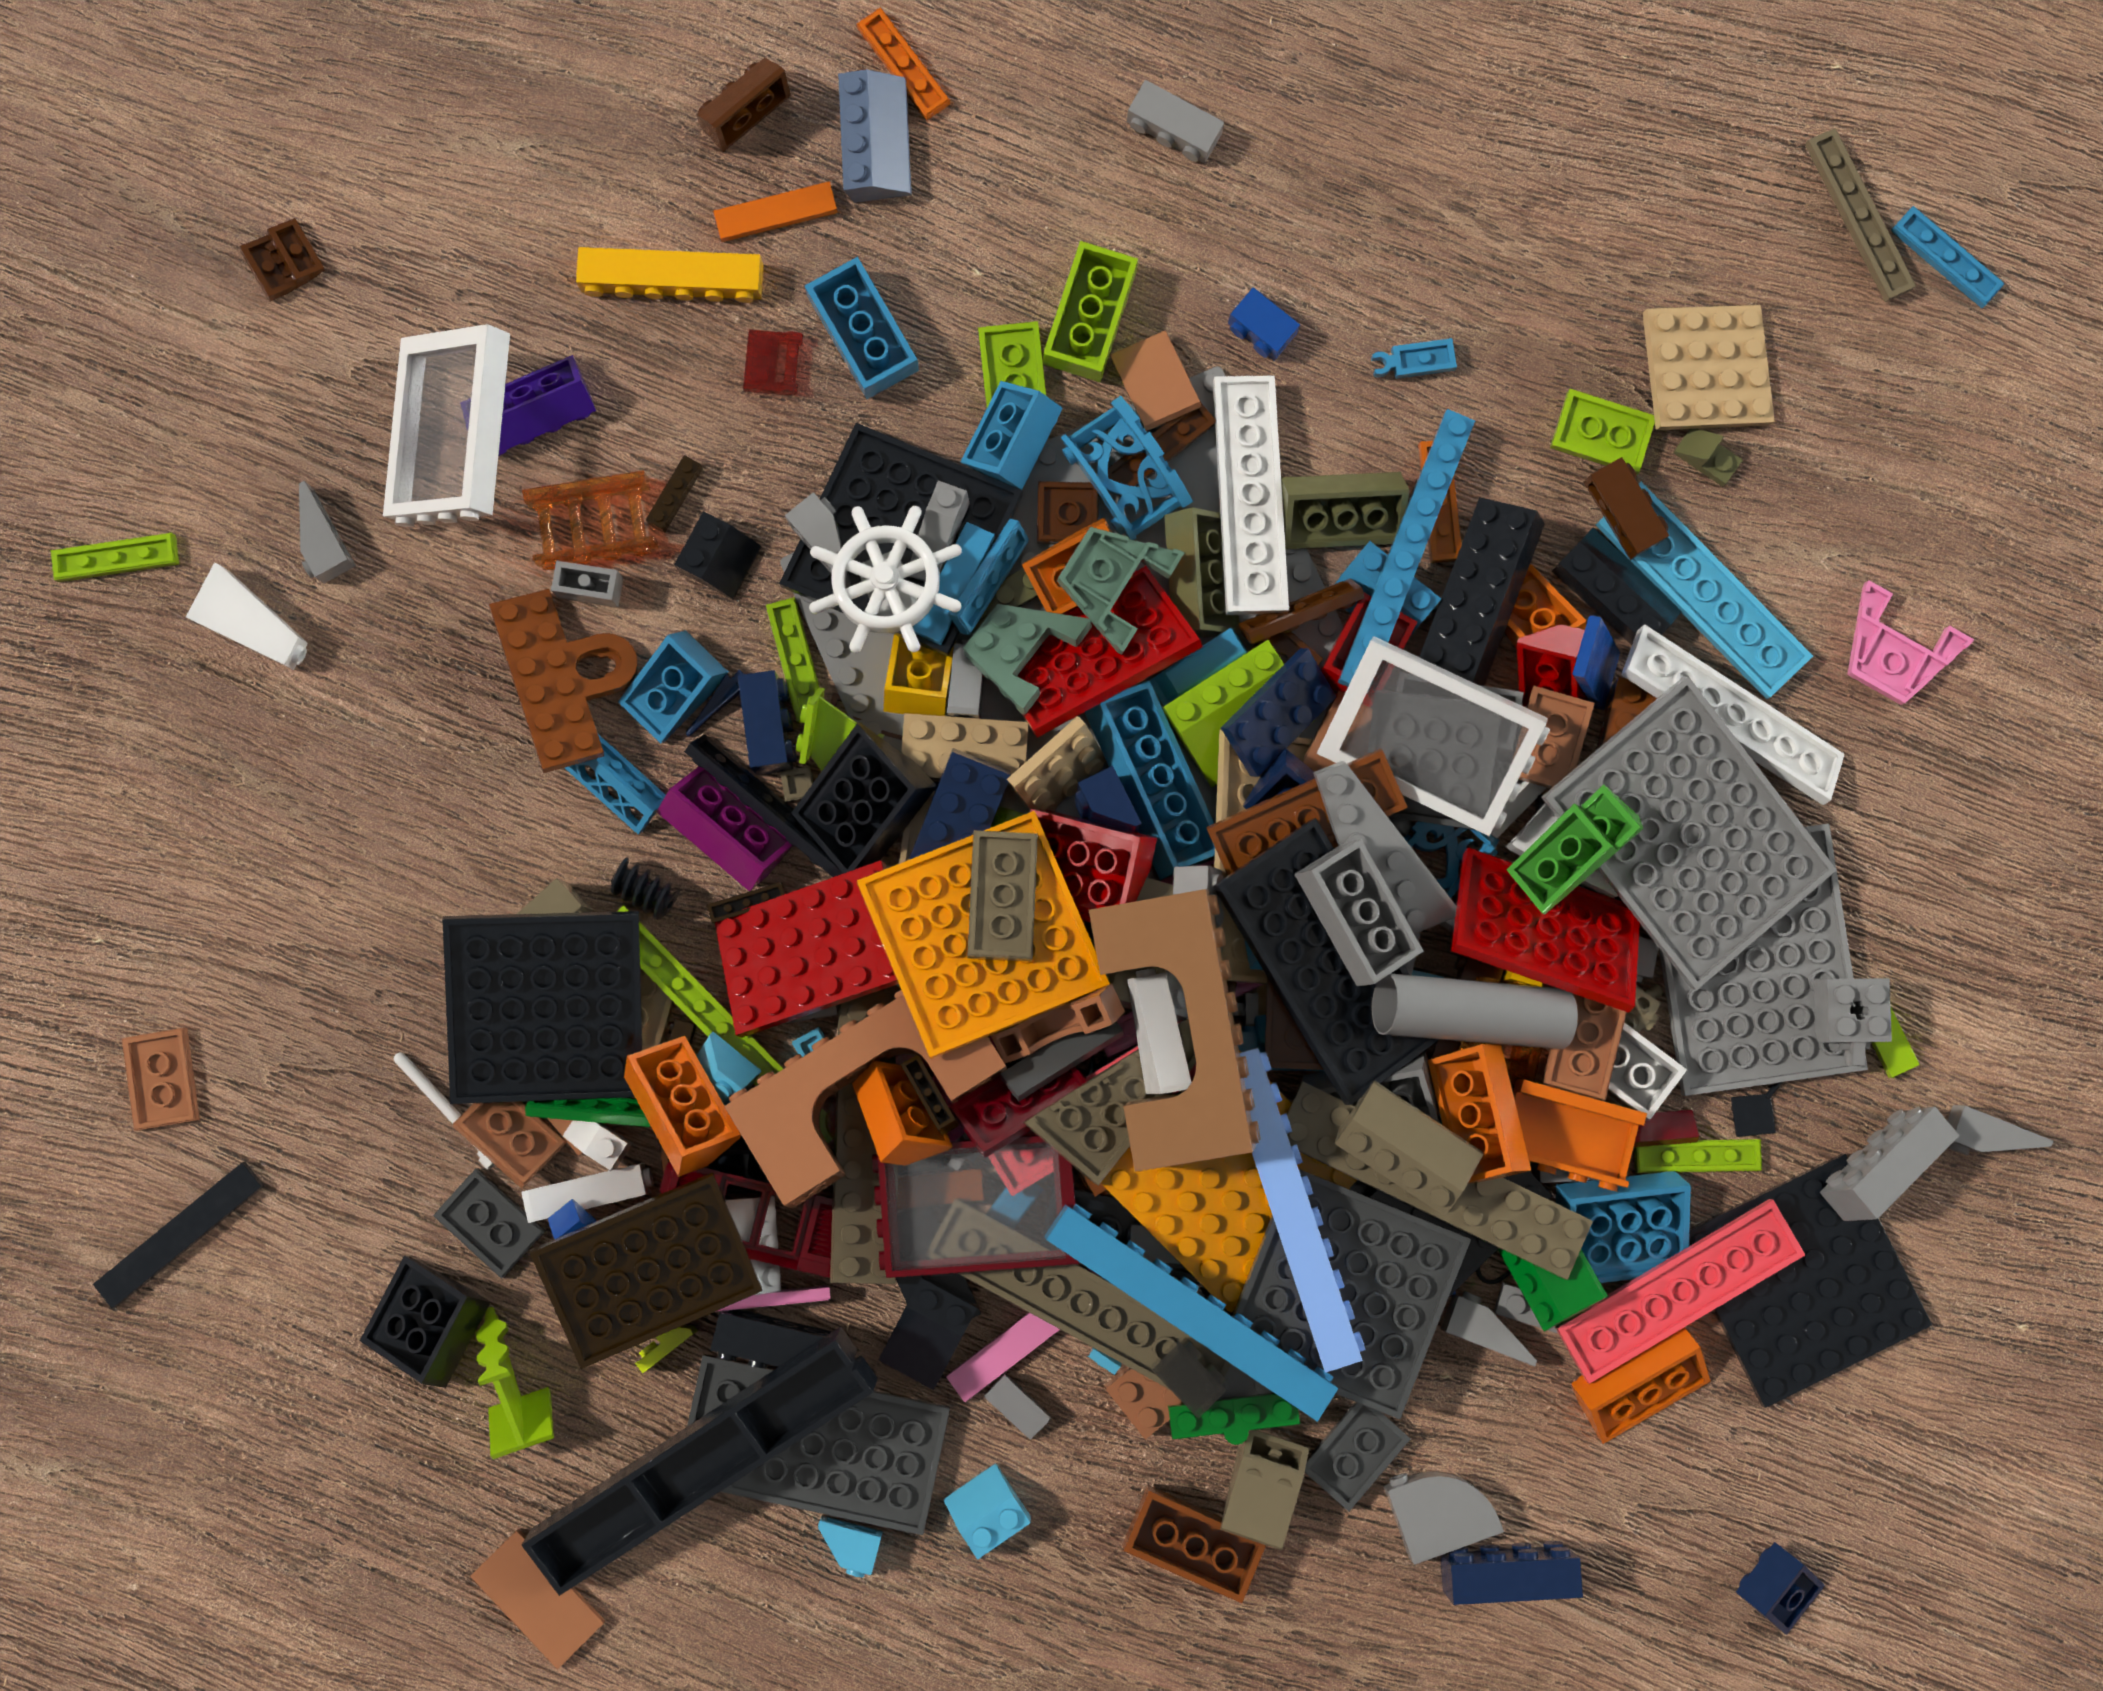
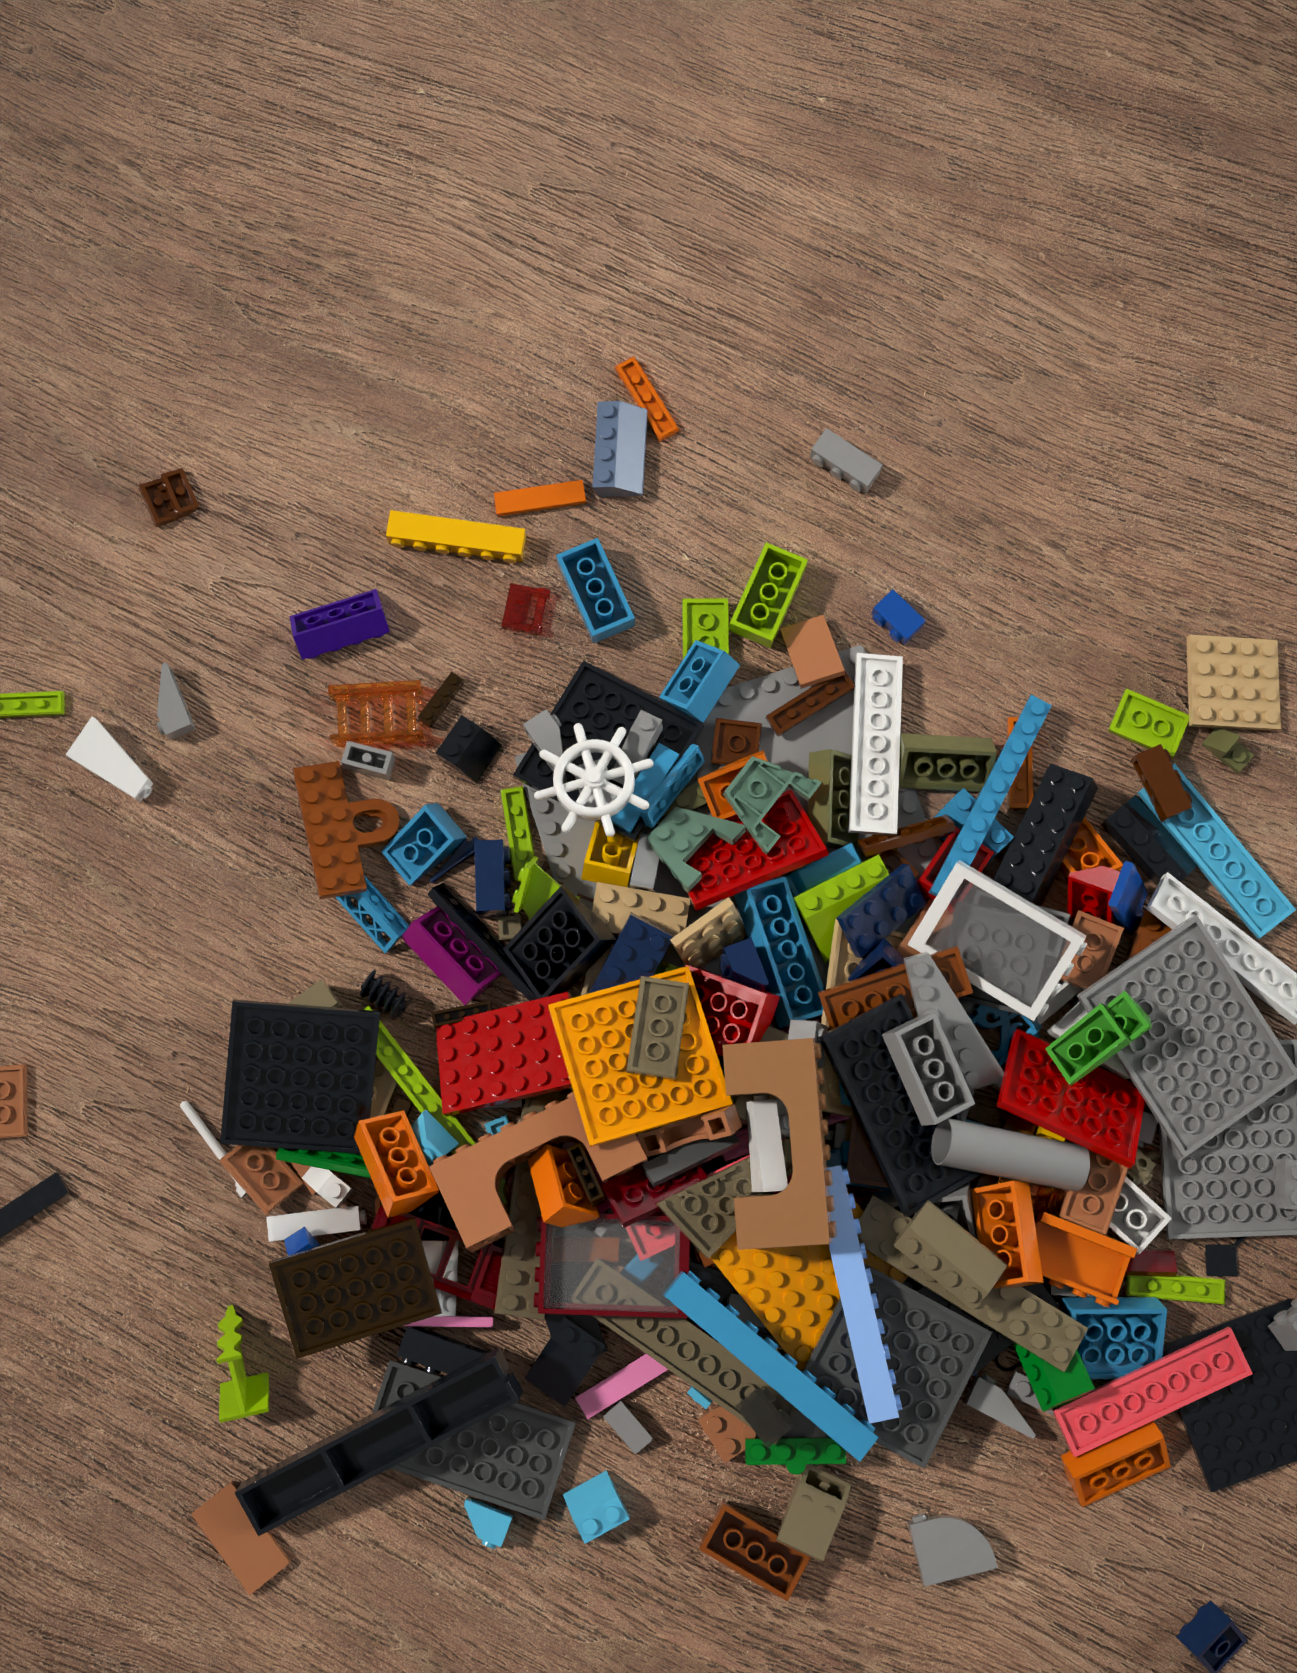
camera: 10 degrees right, 5 degrees down
(424, 1322) = (179, 1311): black slope -> none
(446, 426) = (277, 633): window -> none
(489, 1223) = (238, 1239): dark grey tile -> none
(668, 1342) = (365, 1346): neon yellow slope -> none
(744, 103) = (525, 416): reddish brown slope -> none
(1126, 424) = (785, 681): dark azure fence -> none
(1355, 1454) = (887, 1493): dark grey plate -> none
(1417, 359) = (1012, 655): dark azure plate -> none
(1511, 1574) = (1000, 1602): dark blue brick -> none

